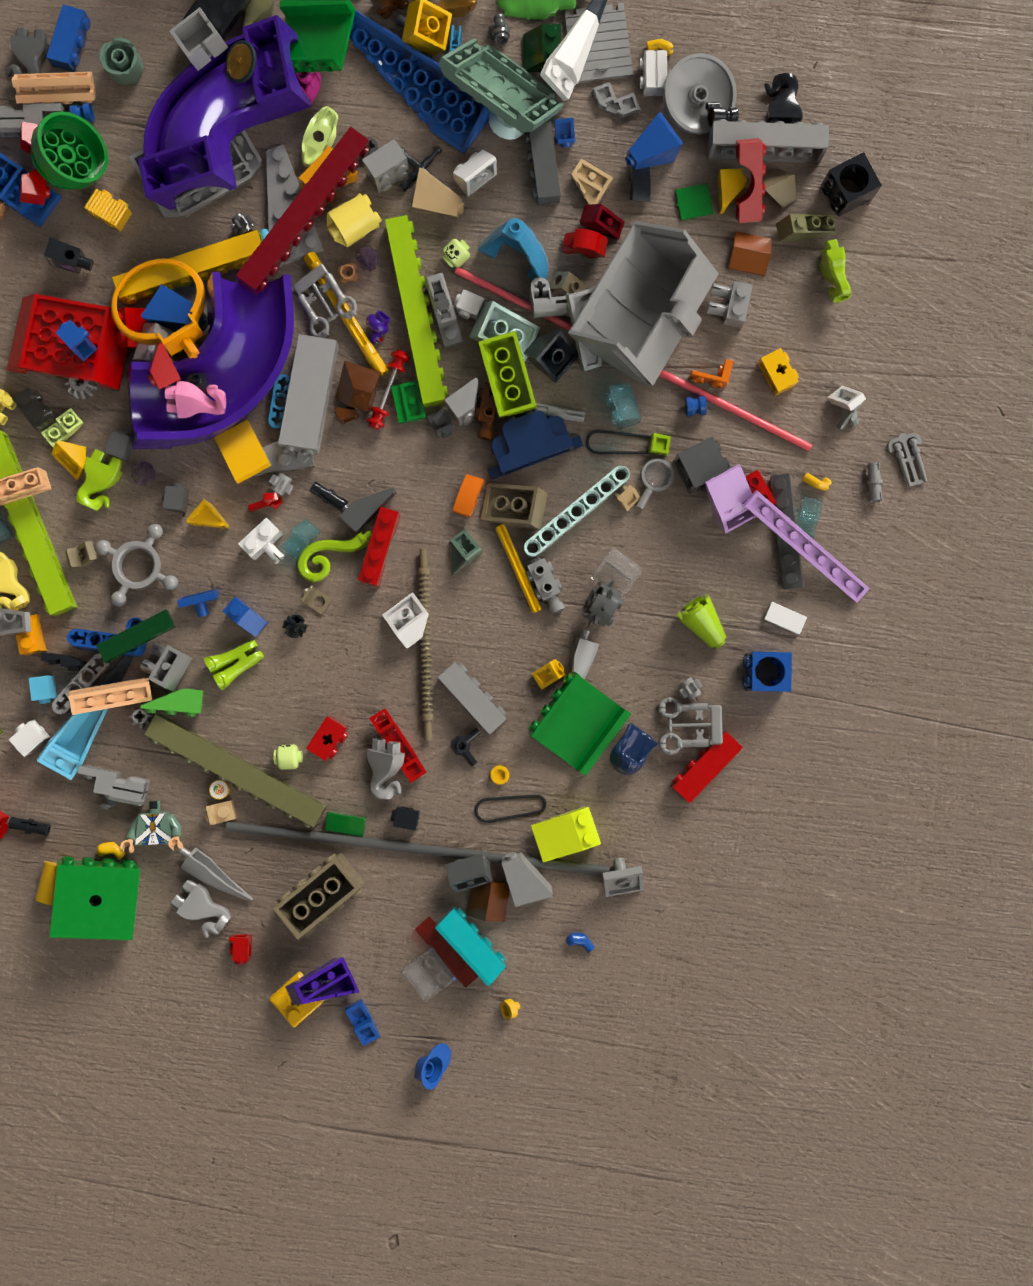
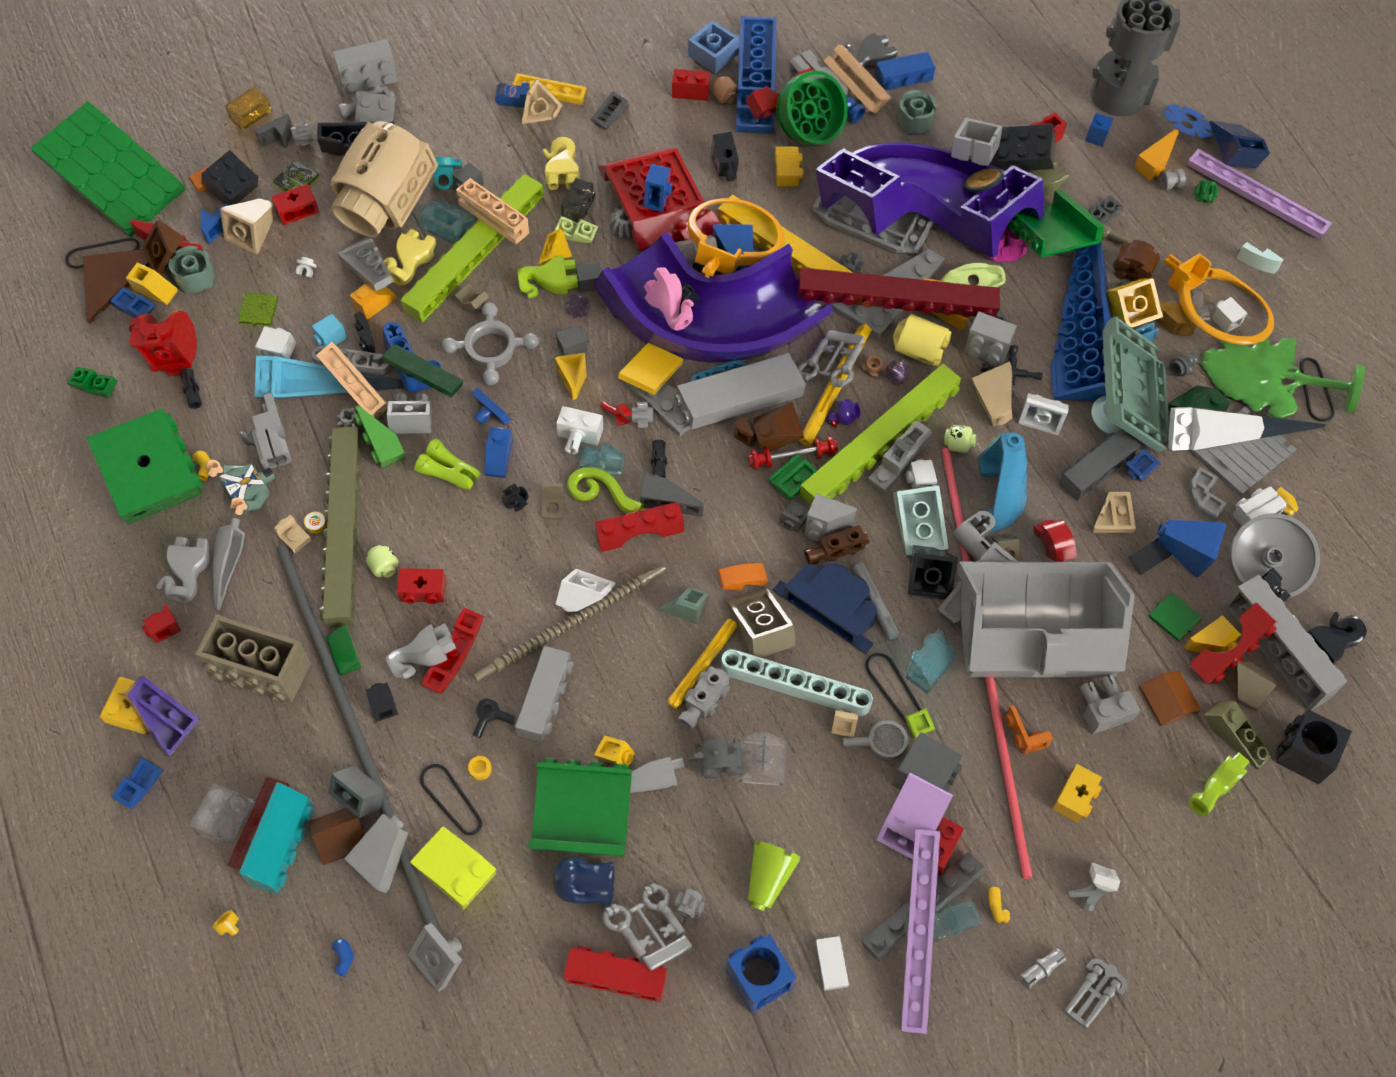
camera: 55 degrees right, 25 degrees down
(162, 368) = (678, 255): red slope -> none
(432, 1066) = (122, 879): blue piece -> none
(507, 374) = (881, 537): lime slope -> none
(602, 220) = (1088, 540): dark red slope -> none
(695, 406) = (982, 733): blue wheel -> none

